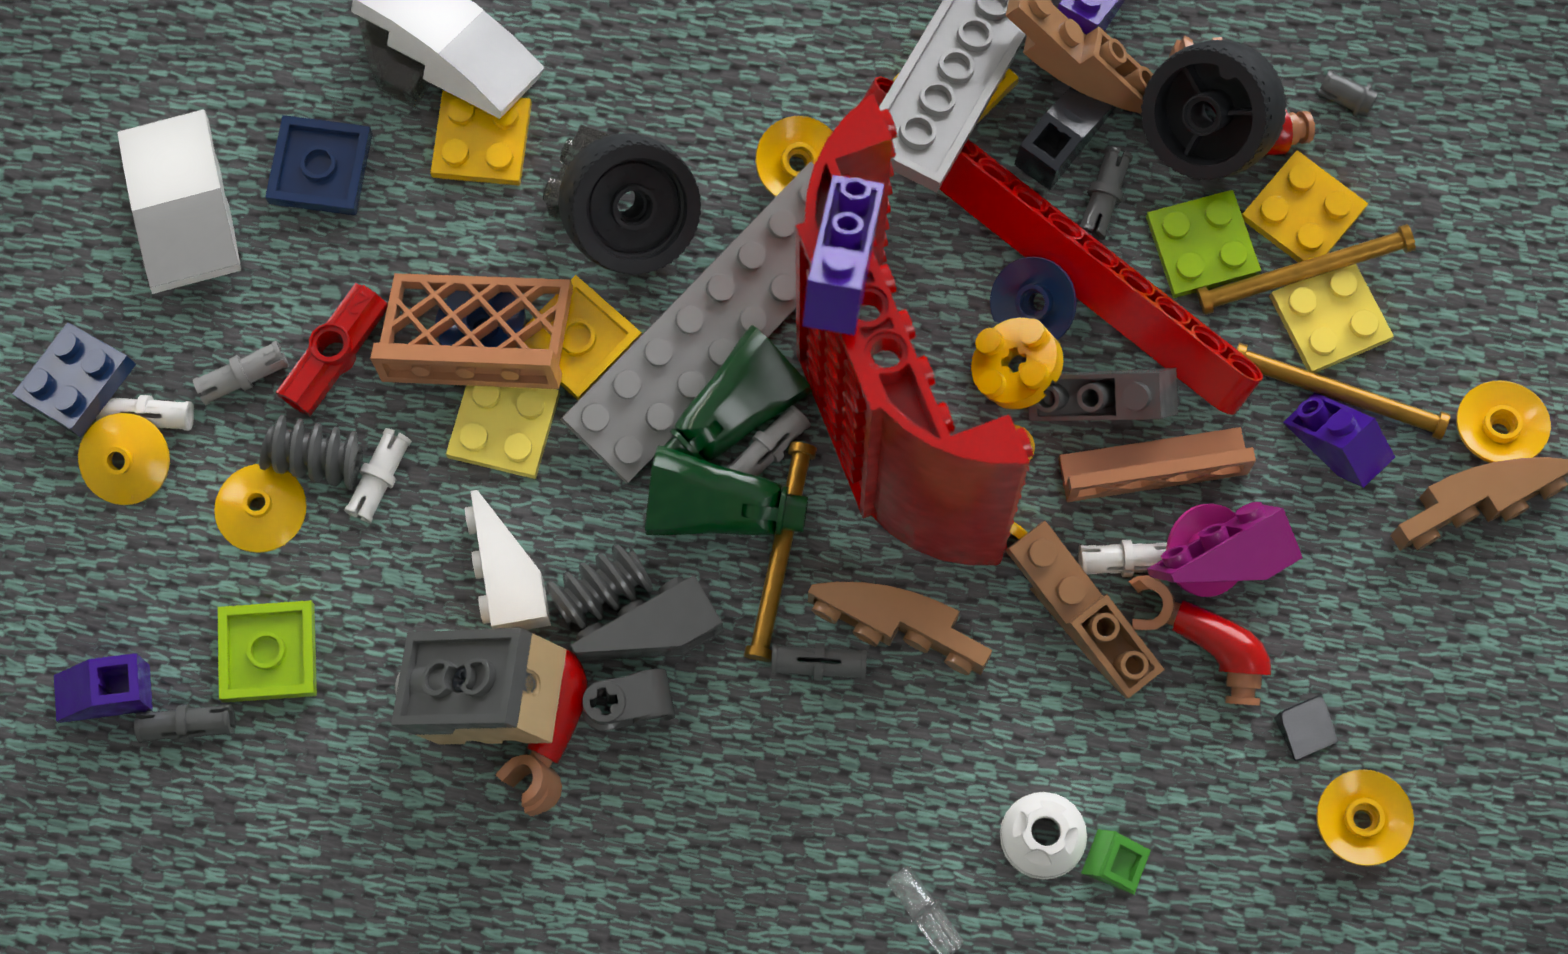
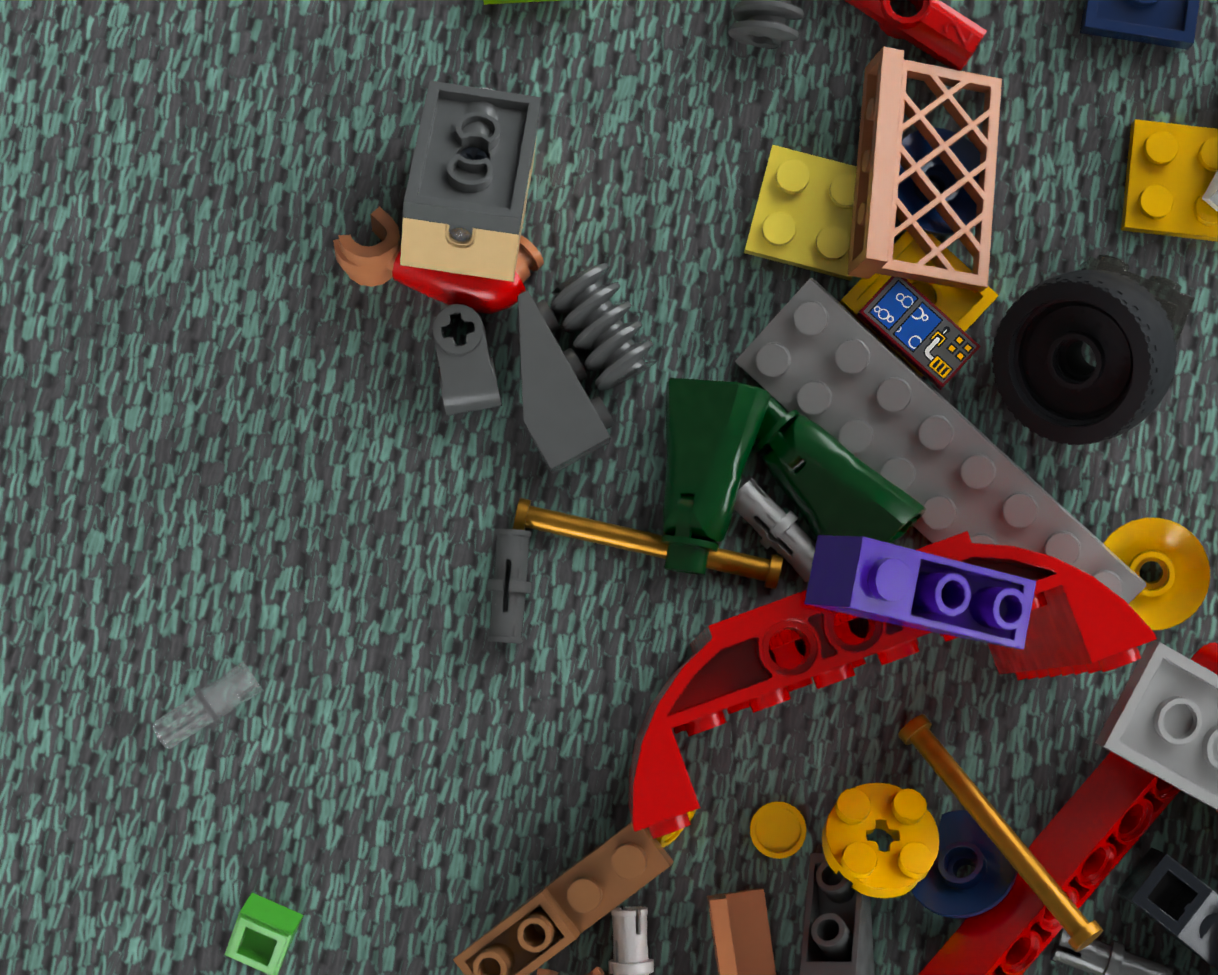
camera: 90 degrees right, 10 degrees up
(377, 475) = (747, 66): white pin -> none
(511, 579) = (619, 220): white slope -> none
(605, 334) = (918, 330): none -> tile
(882, 610) = (567, 663): medium nougat slope -> none
(1006, 270) = (1001, 834): none -> pearl gold bar
(1036, 859) = (326, 842): white piece -> none

